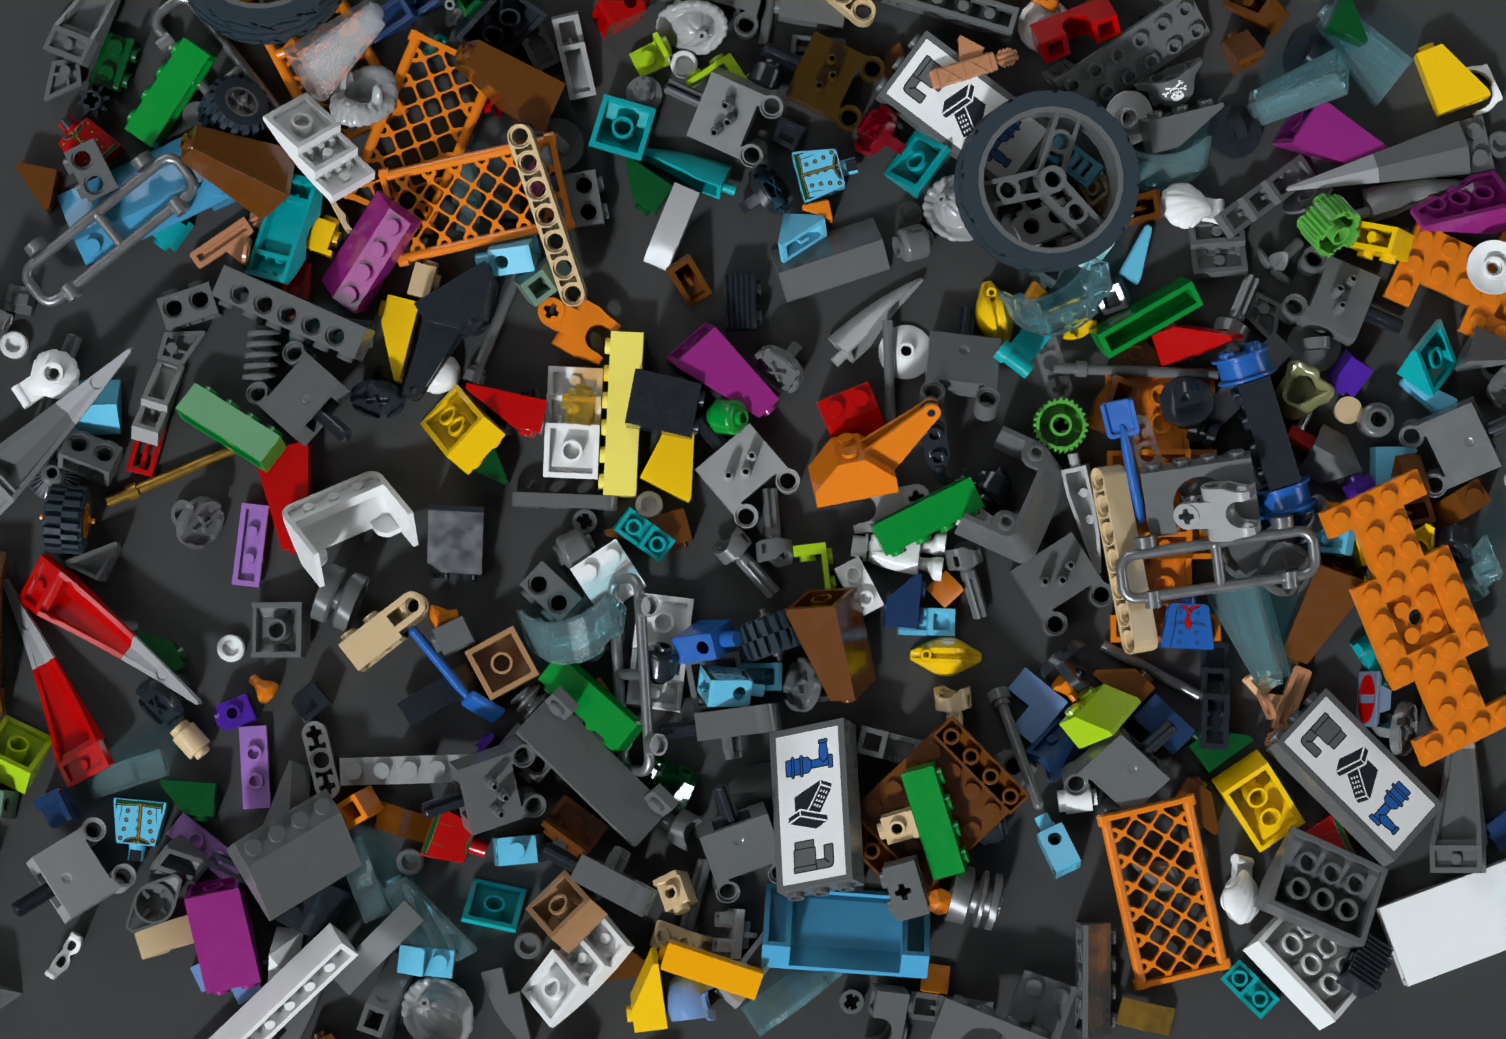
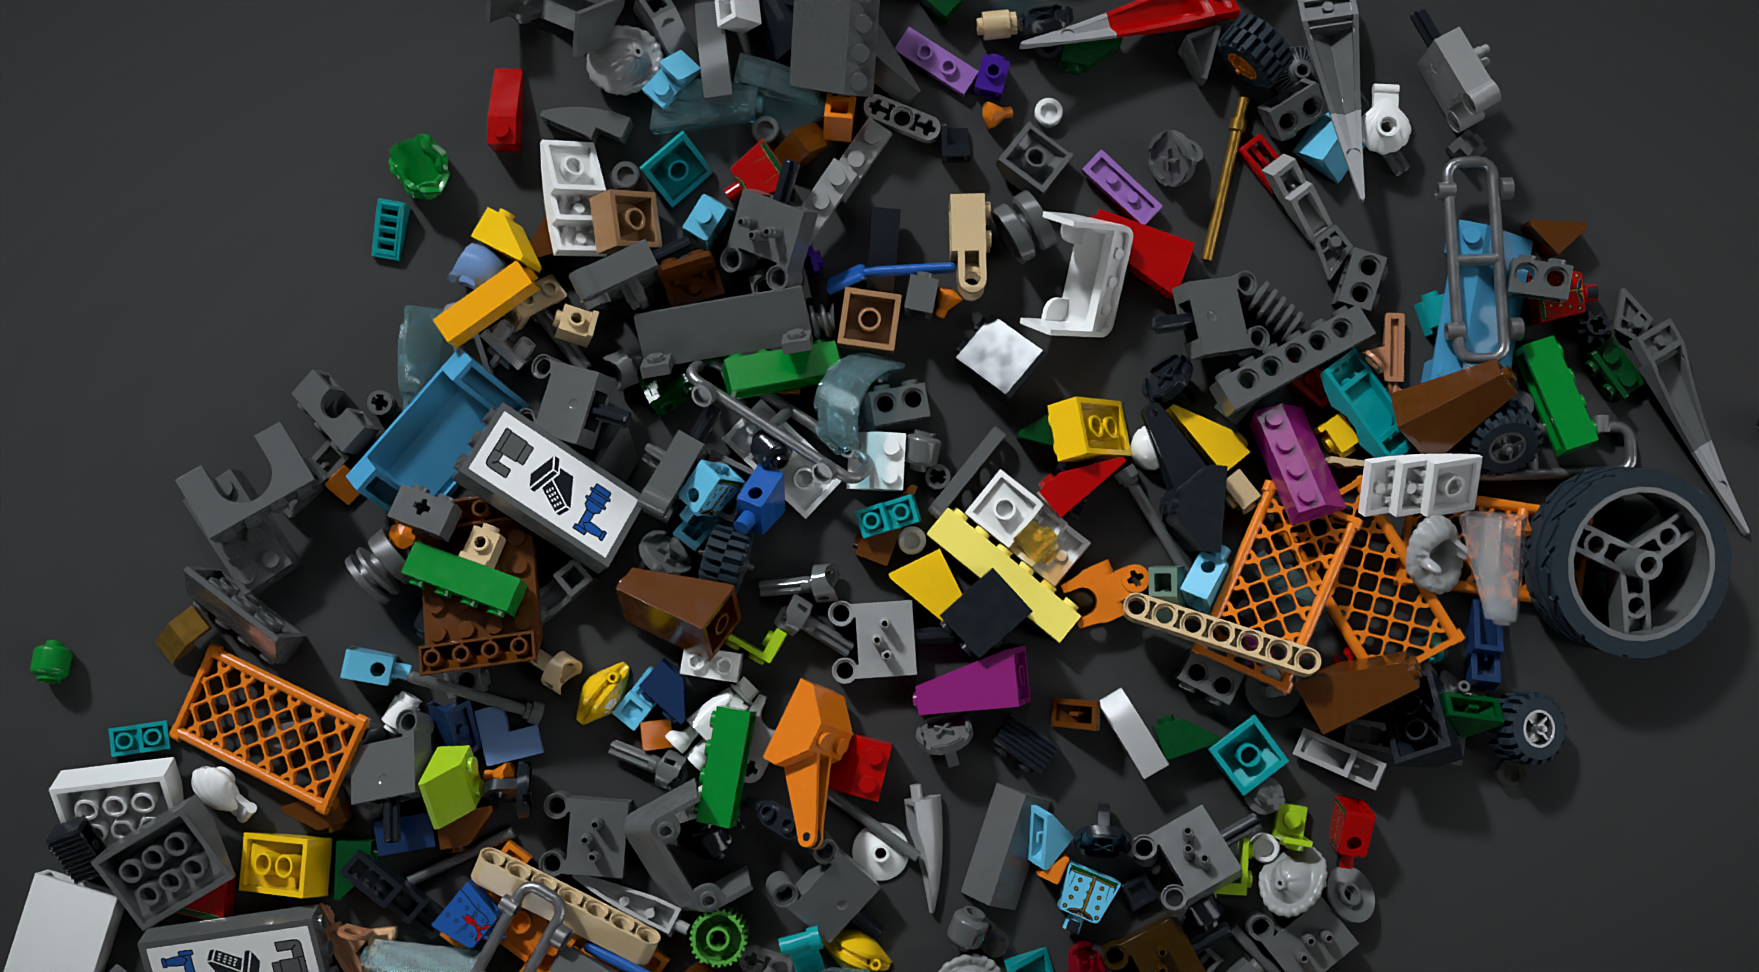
camera: 135 degrees right, 0 degrees up
(14, 345) = (1431, 117): white tile -> none
(231, 427) = (1232, 241): green brick -> none
(695, 171) = (1164, 788): teal piece -> none
(727, 416) = (936, 660): green head -> none

